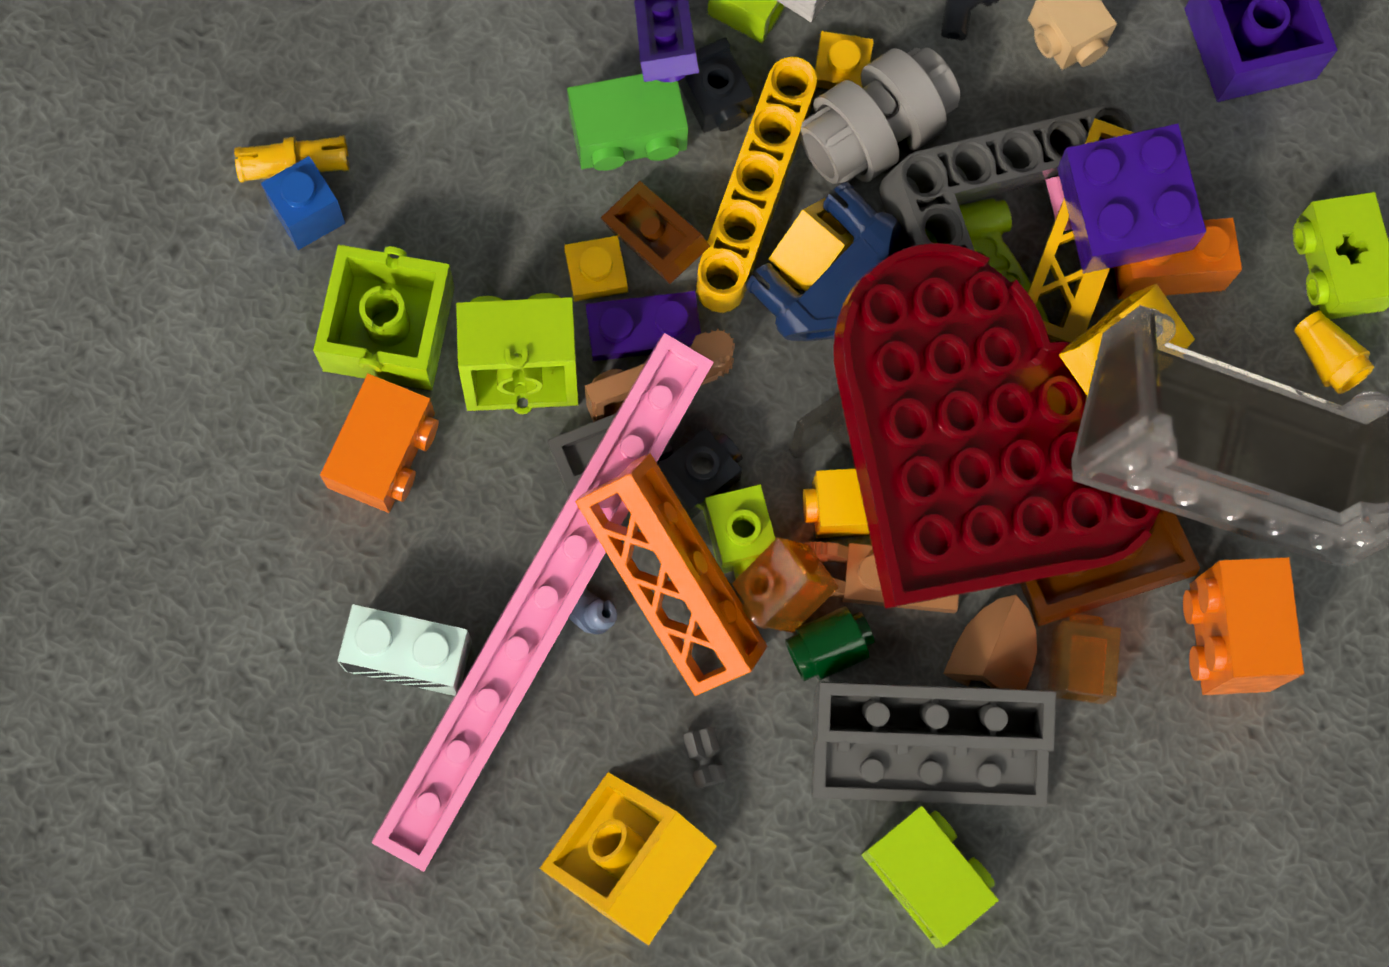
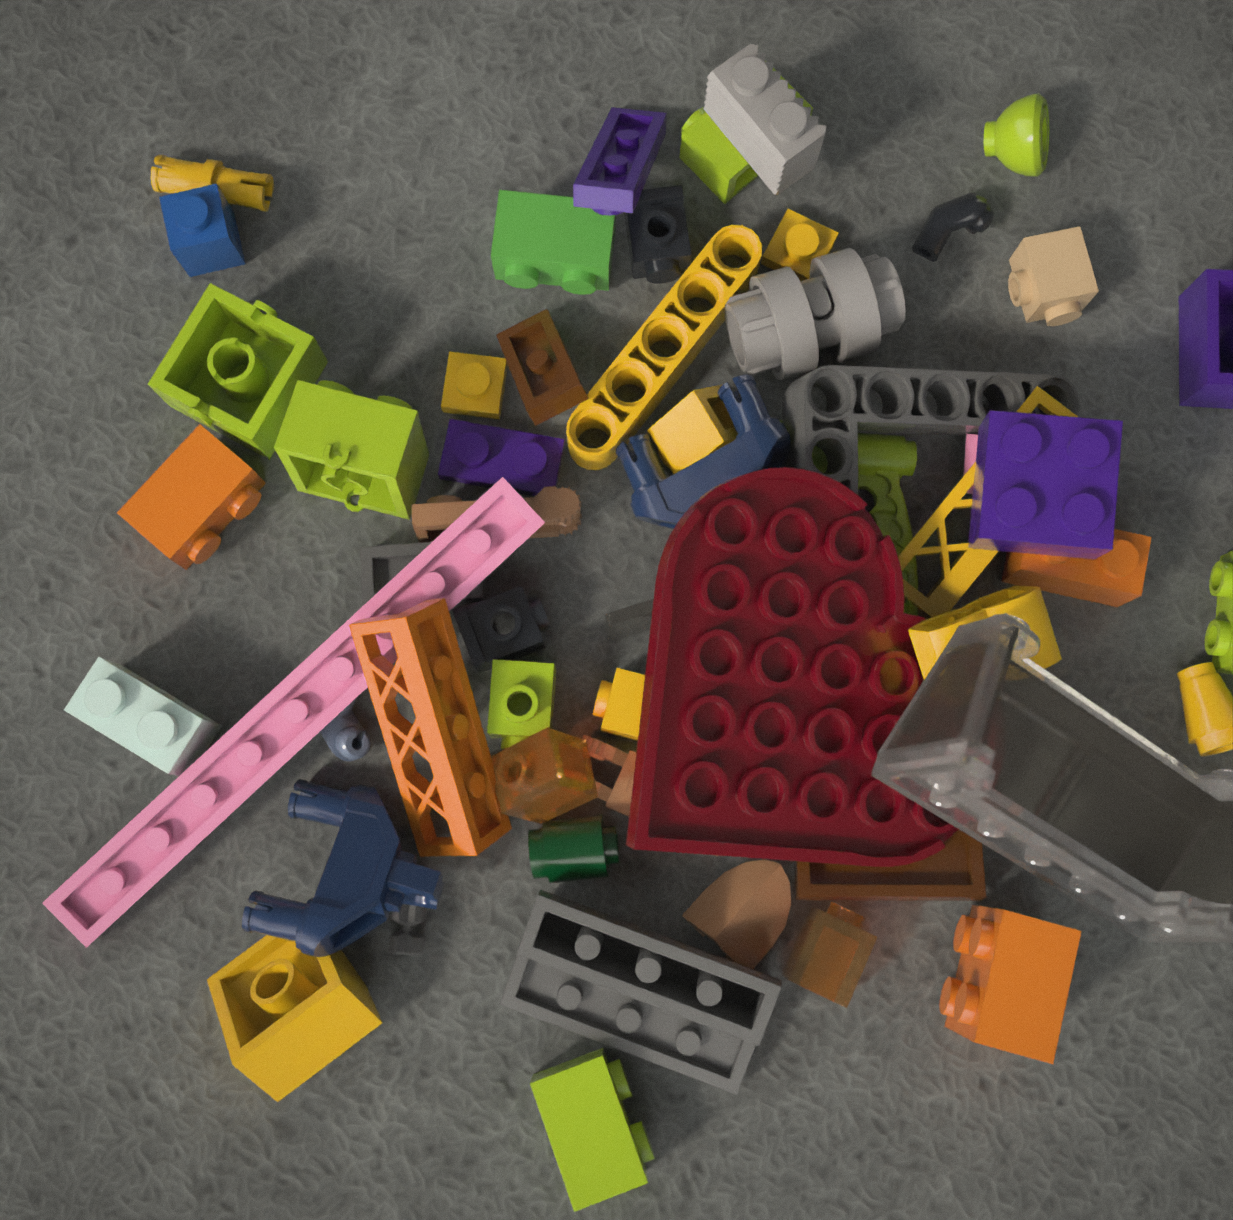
camera: 25 degrees right, 5 degrees up
(657, 723) = (361, 879): none -> dark blue connector

